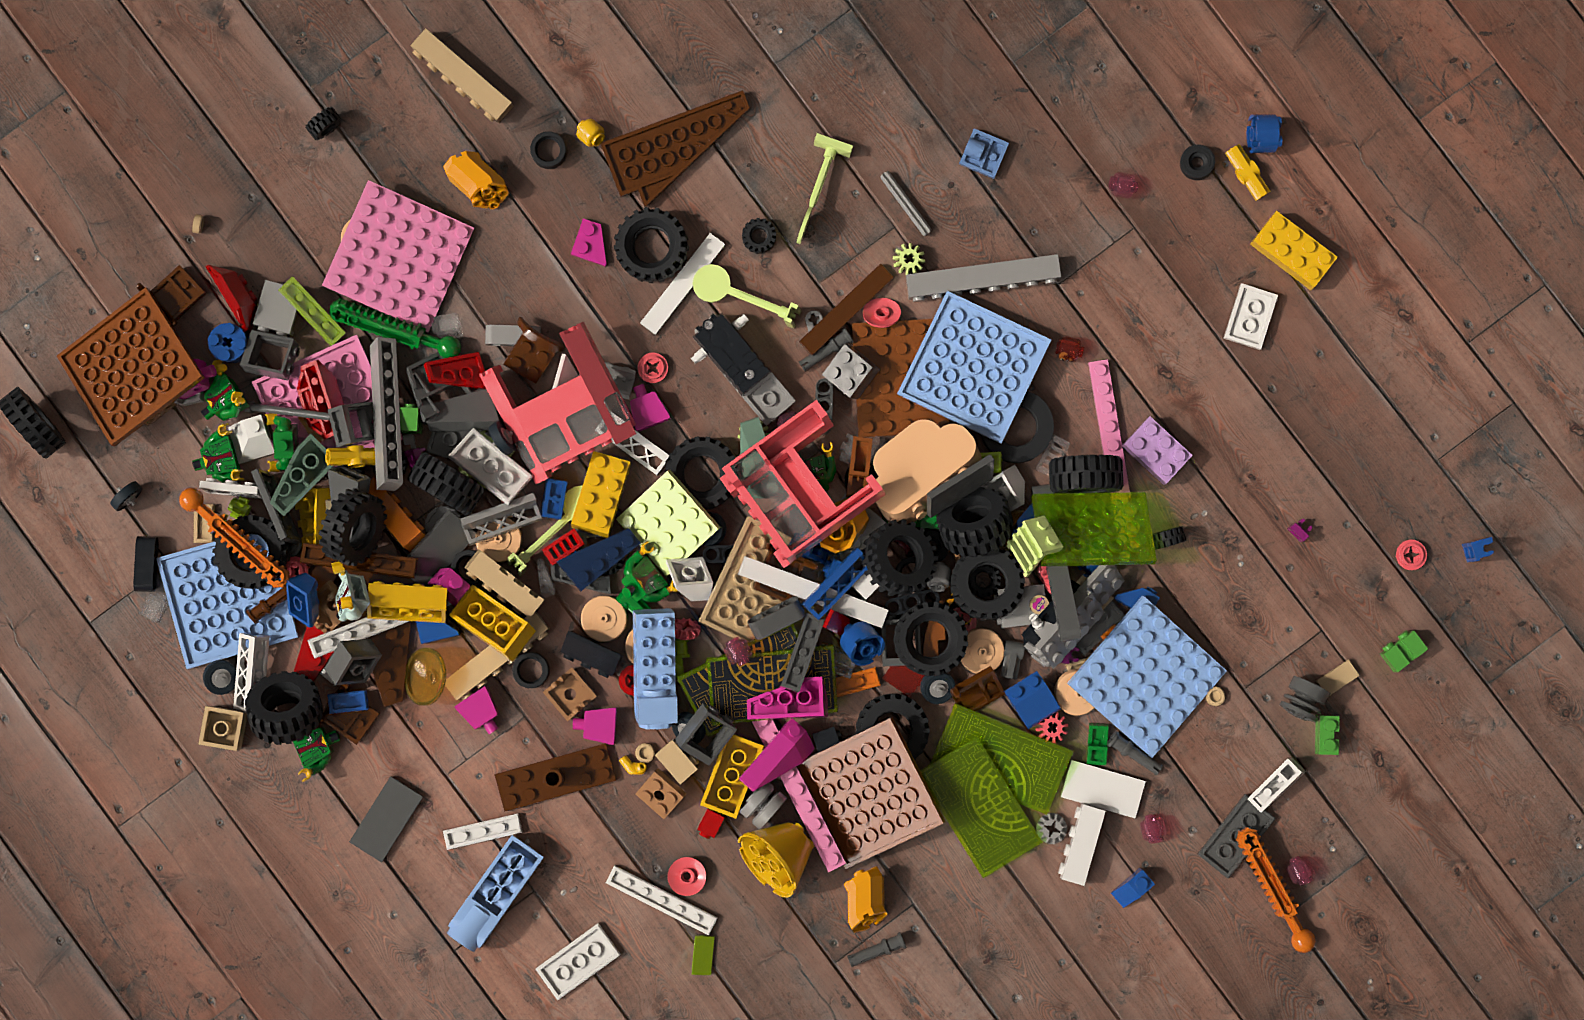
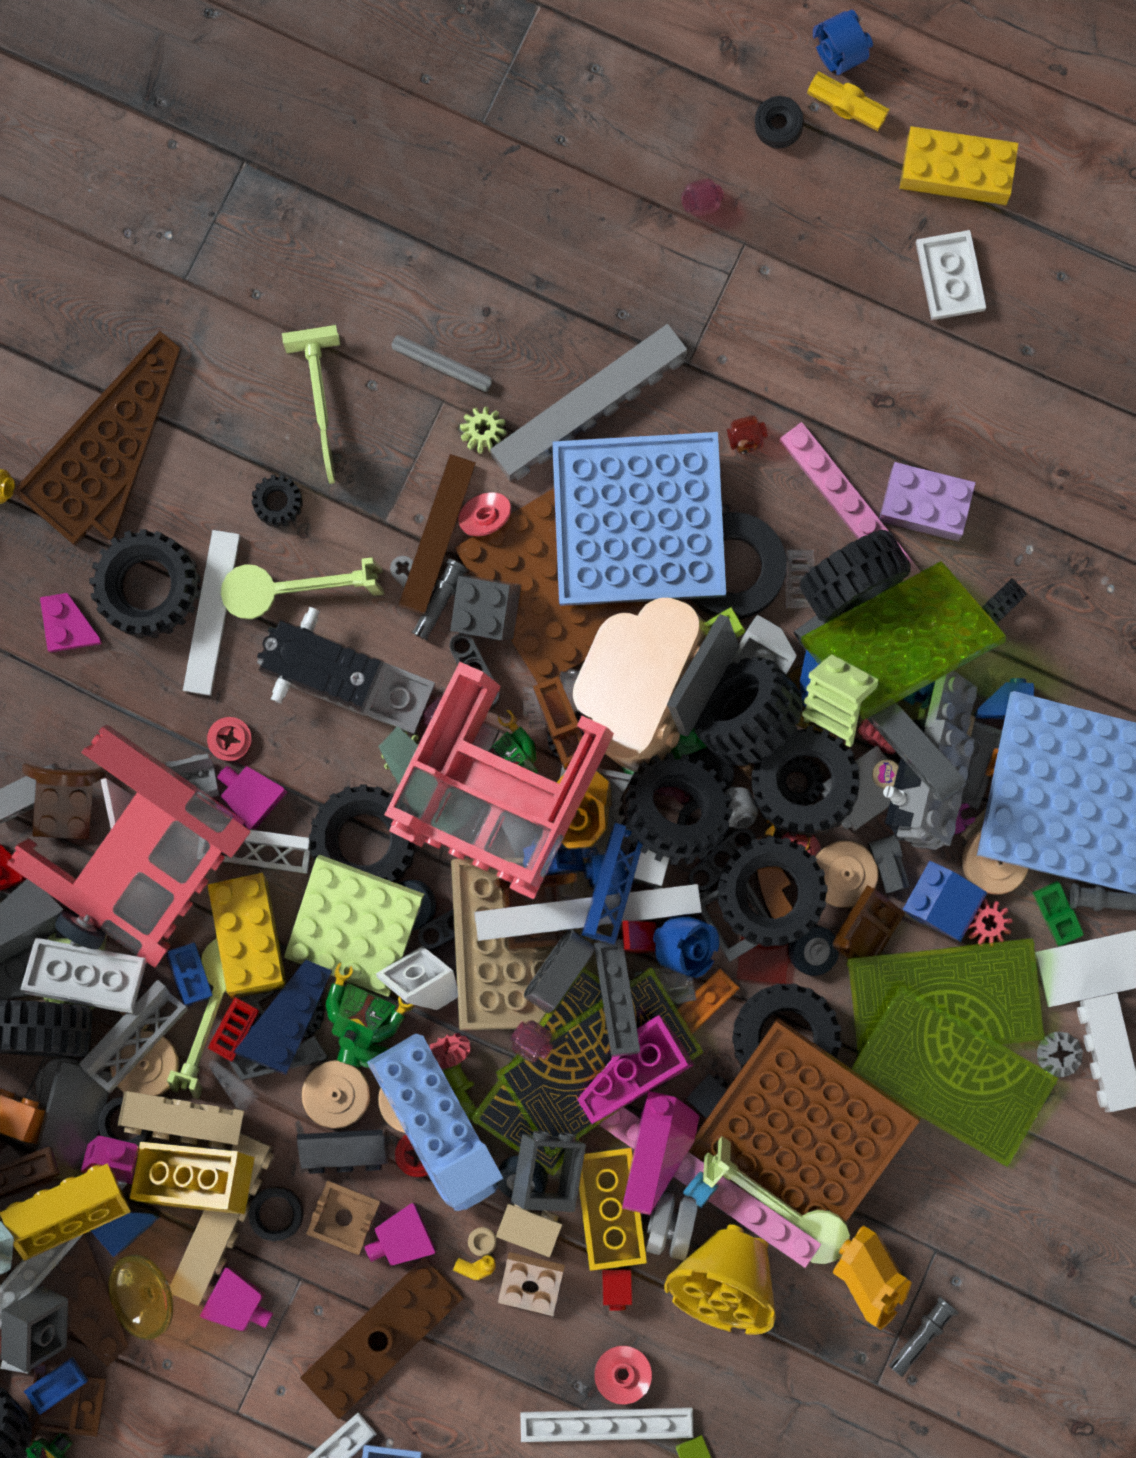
camera: 25 degrees left, 5 degrees down
(791, 792) = (700, 1190): none -> dark azure wheel
(852, 853) = (820, 1224): none -> yellowish green piece
(983, 153) = (506, 250): medium blue plate -> none

